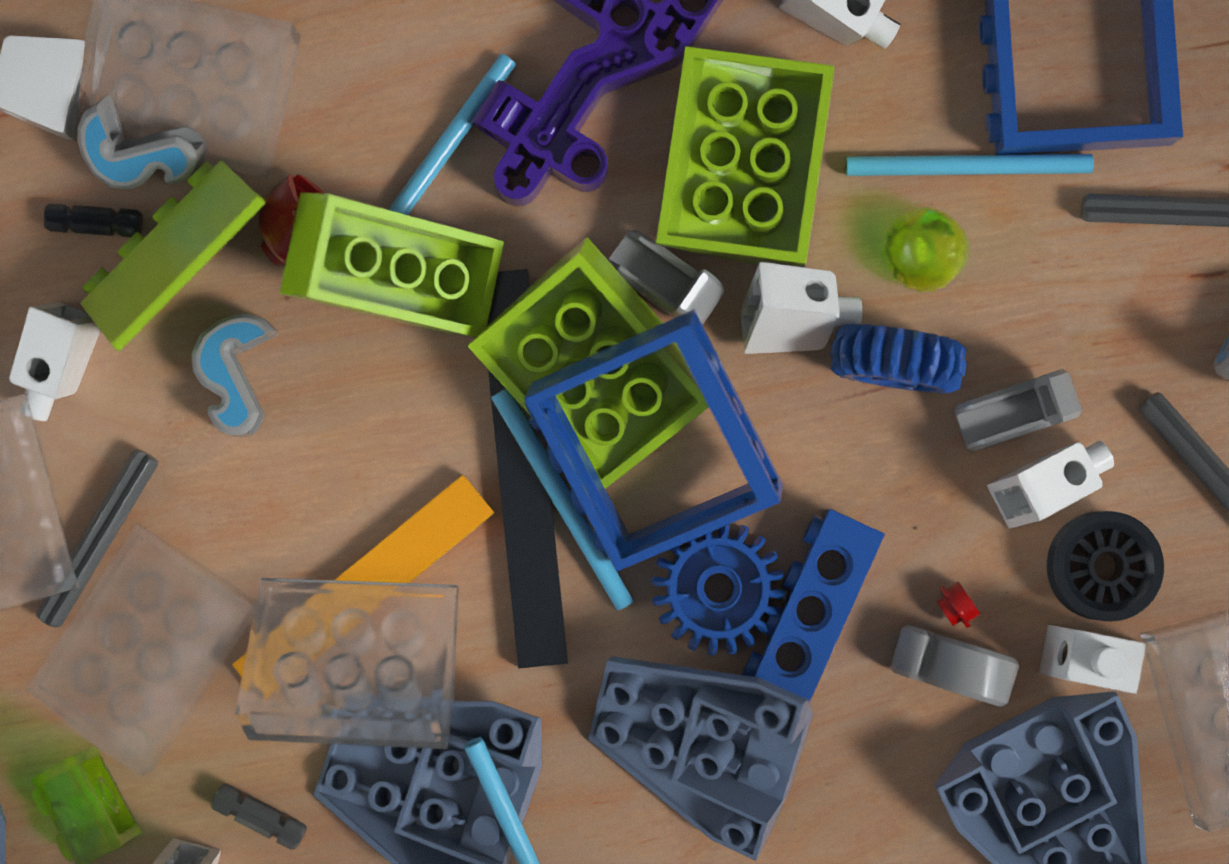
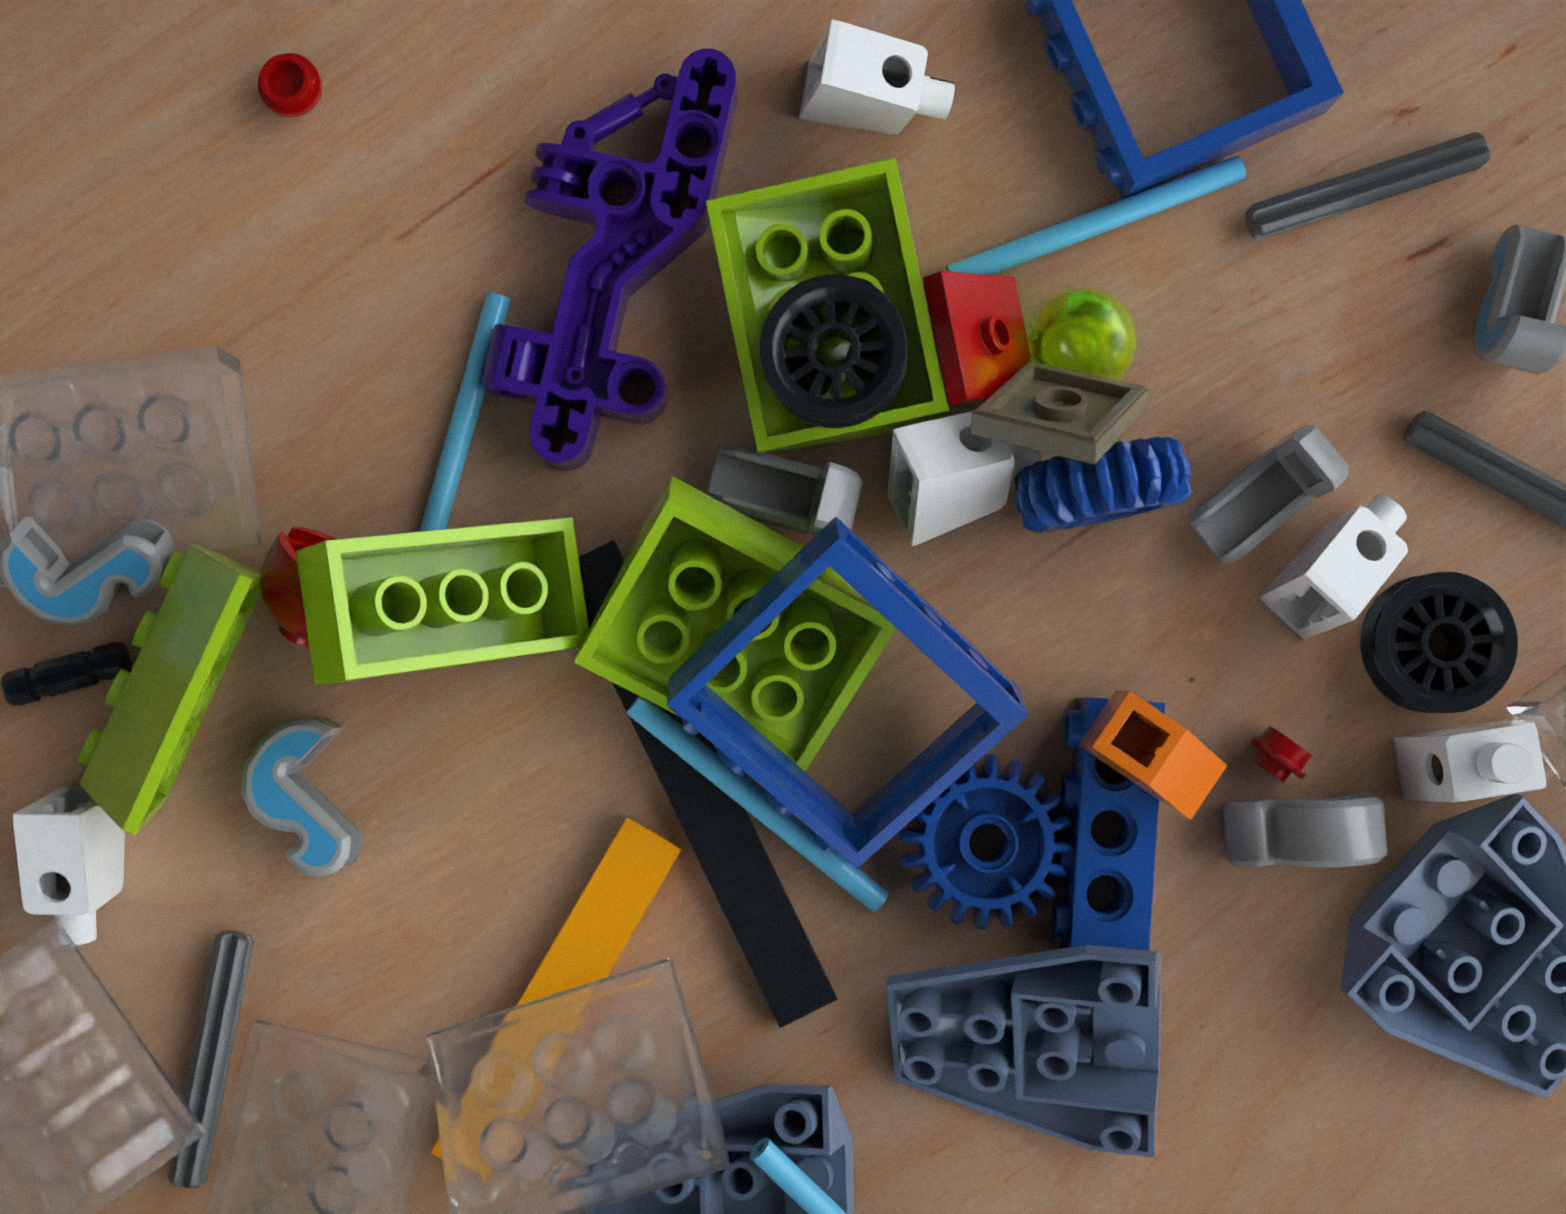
camera: 20 degrees left, 0 degrees up
(706, 158) = (801, 303): none -> black wheel
(849, 220) = (976, 333): none -> red plate
(862, 565) = (1153, 752): none -> orange slope
(885, 293) = (1060, 412): none -> dark tan plate

